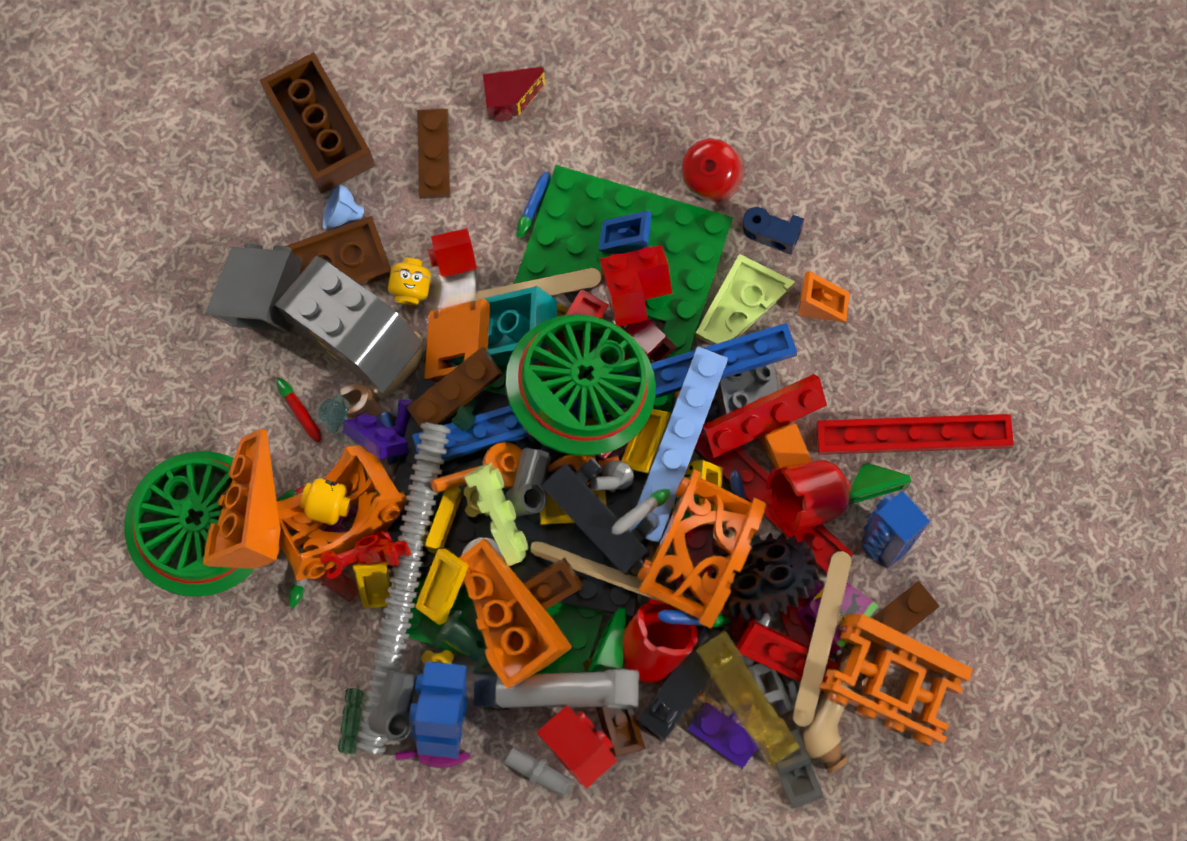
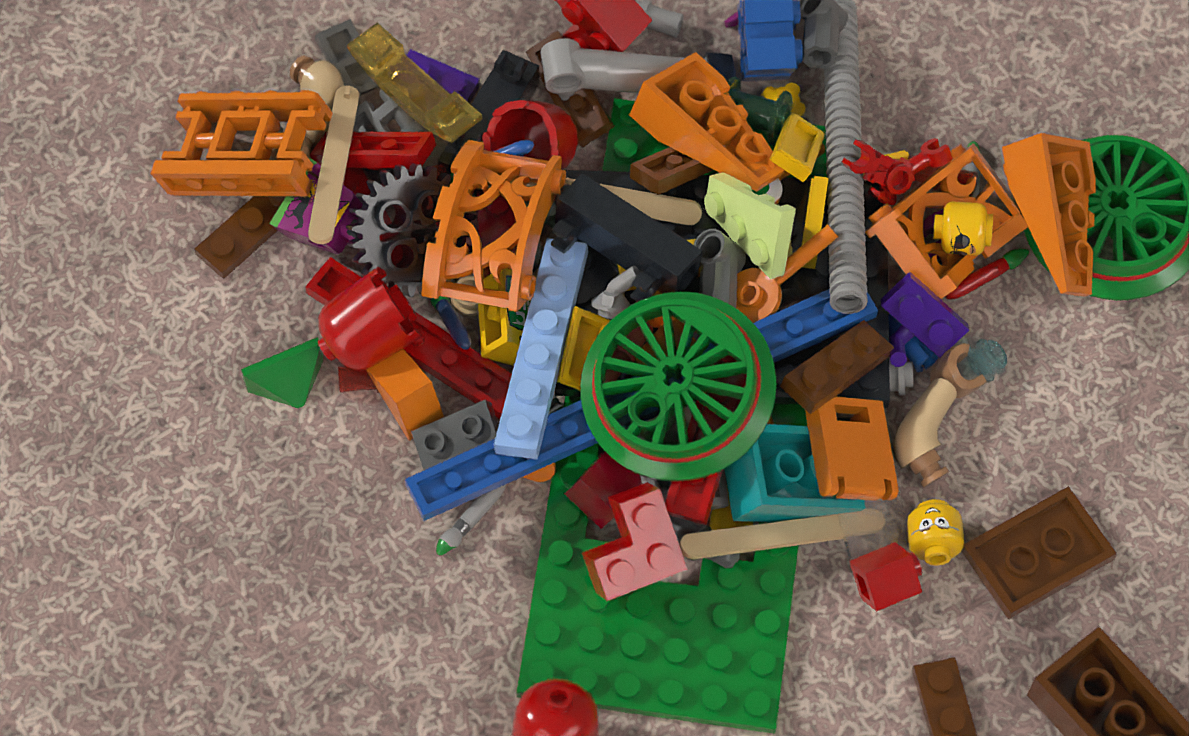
camera: 165 degrees right, 10 degrees down
(252, 285) = (1131, 475): dark grey slope -> none
(298, 409) = (1034, 363): red piece -> none
(341, 209) = (1054, 618): light blue piece -> none
(349, 323) = (1000, 429): dark grey brick -> none
(350, 720) = (869, 36): clear green axle -> none
(464, 418) = (819, 331): clear green hand -> none
(525, 222) = (794, 678): blue piece -> none
(610, 648) = (586, 121): green slope -> none
(626, 233) = (657, 623): blue slope -> none
(657, 499) = (557, 266): light grey piece -> none
(742, 300) = (488, 581): yellowish green wing -> none
(764, 415) = (428, 421): red plate -> none
(772, 230) = (459, 678): dark blue leg -> none
(822, 299) = (379, 594): orange slope -> none
(893, 529) = (258, 278): blue brick -> none
(914, 434) = (240, 443): red plate -> none

